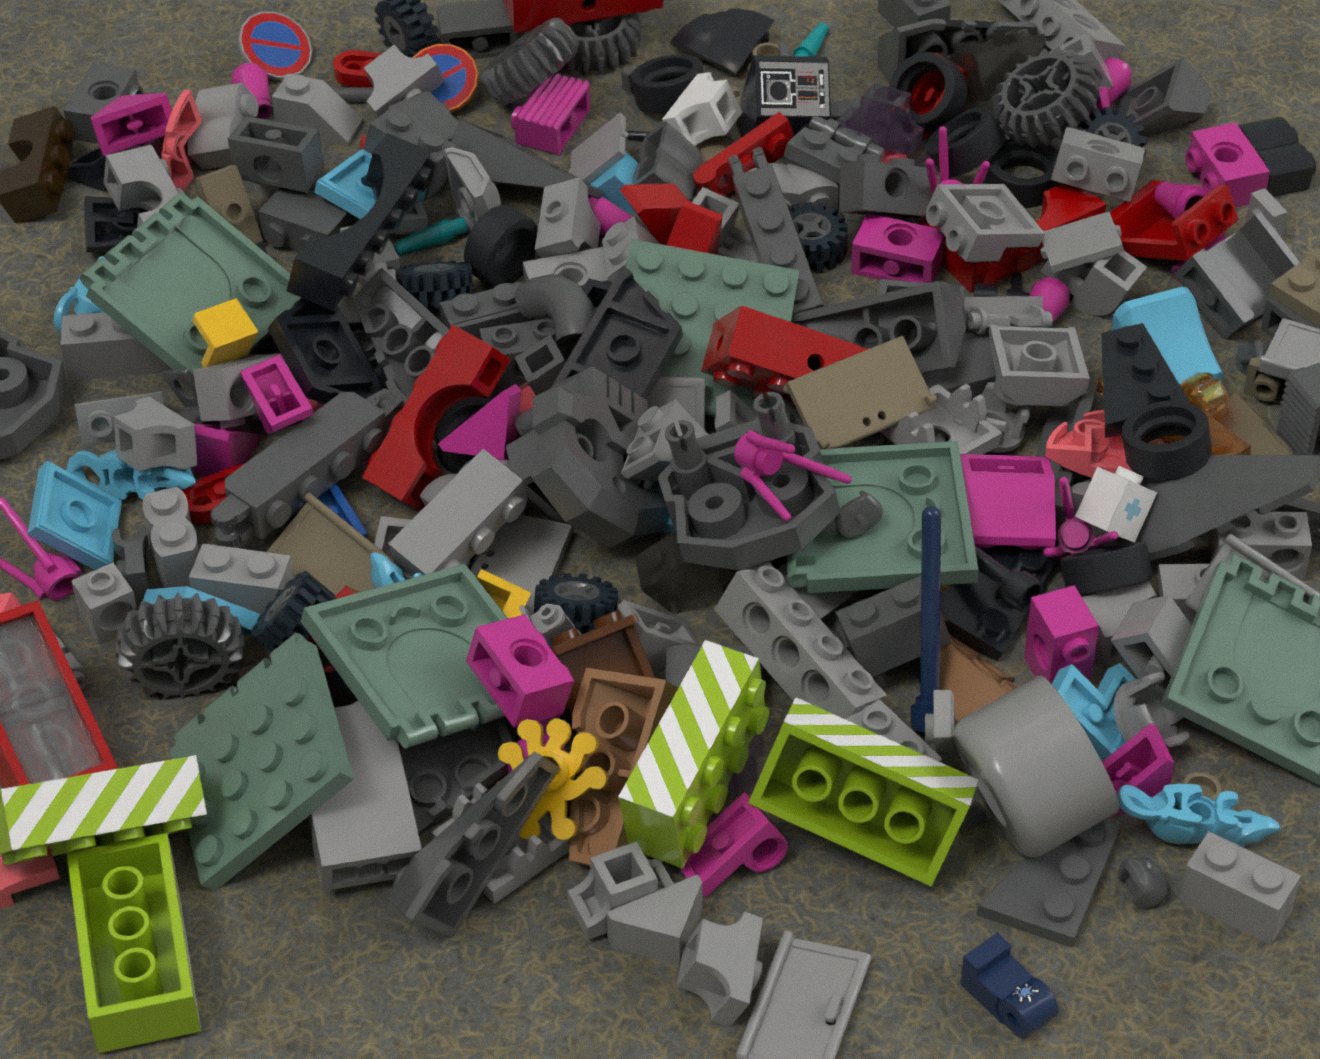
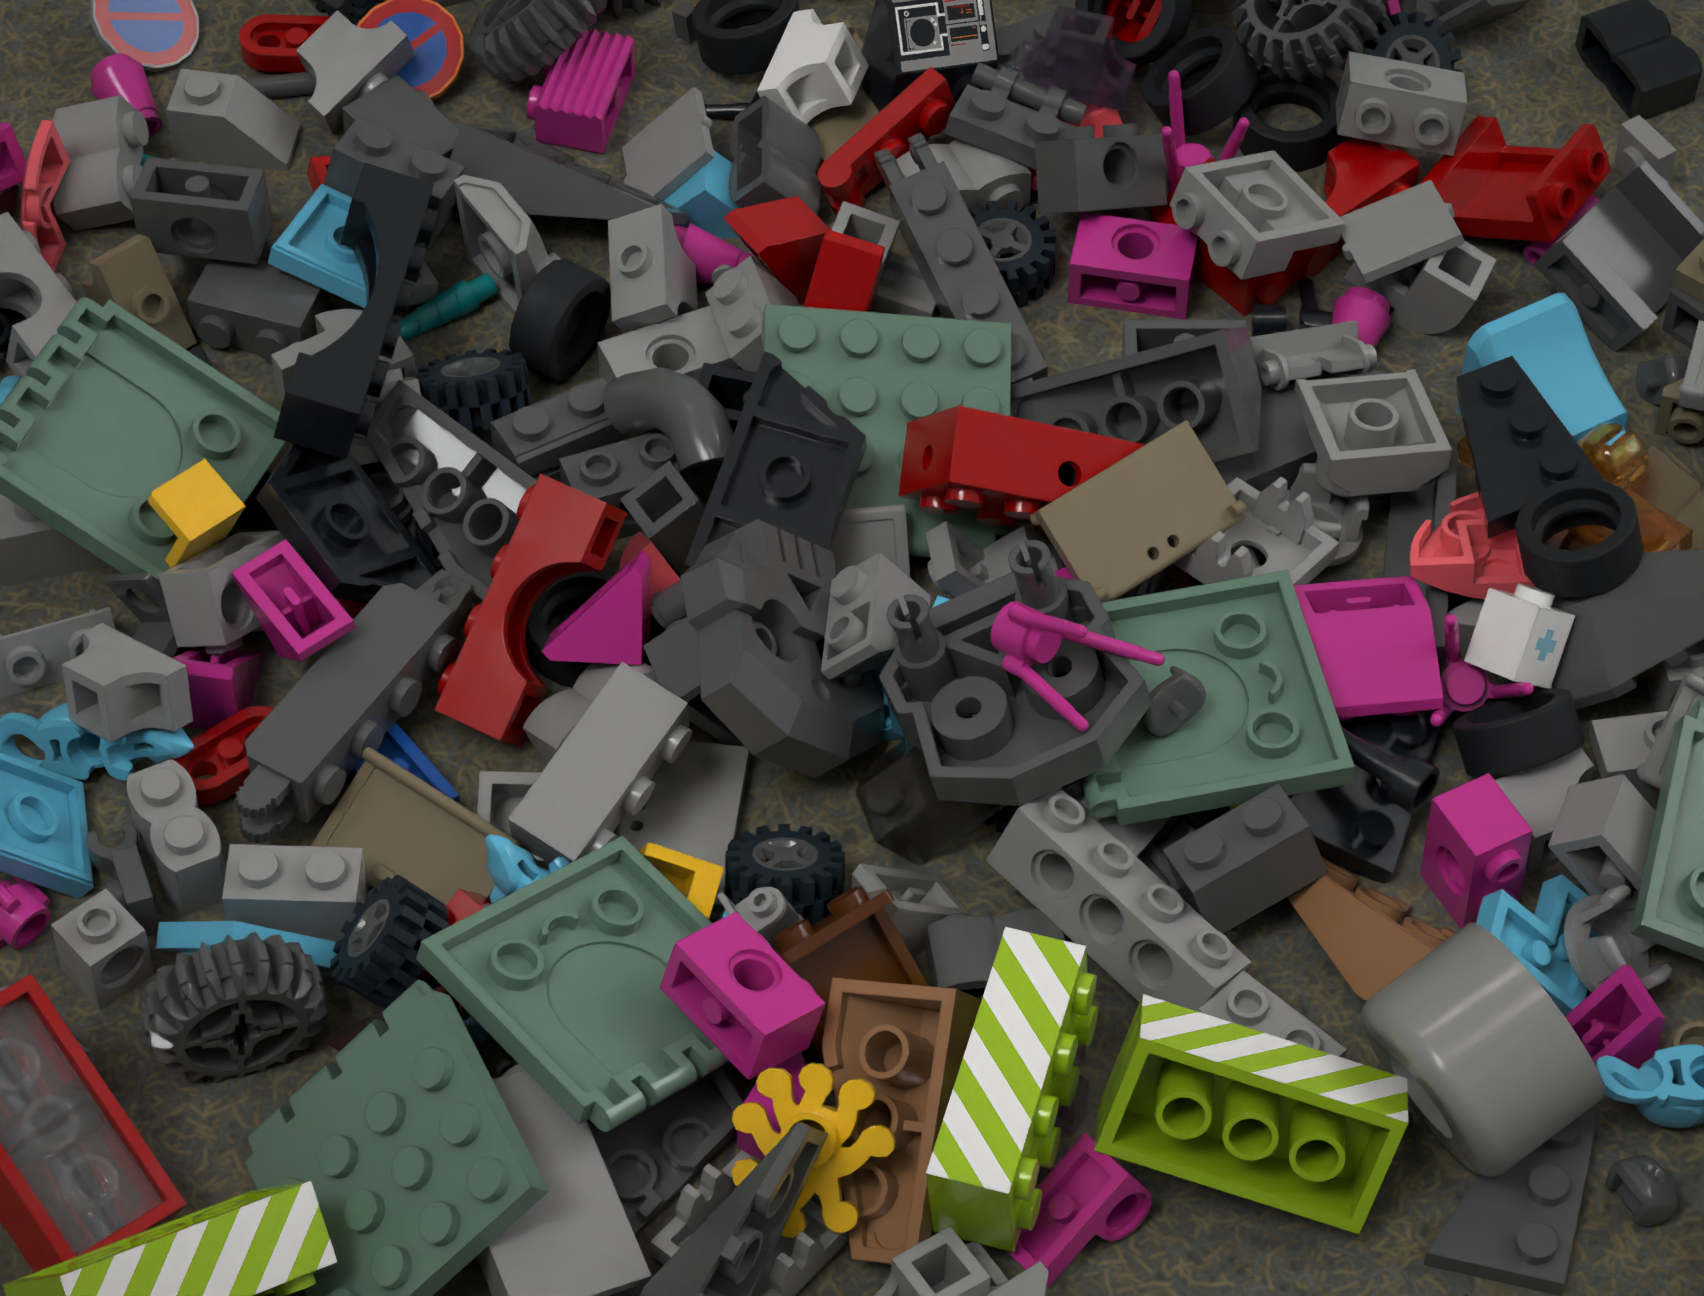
camera: 10 degrees left, 5 degrees up
(929, 617) = (1308, 974): dark blue piece -> none
(940, 726) = (1341, 1002): light grey plate -> none
(1178, 197) = (1524, 146): dark pink cone -> none
(1226, 158) = (1576, 77): dark pink brick -> none

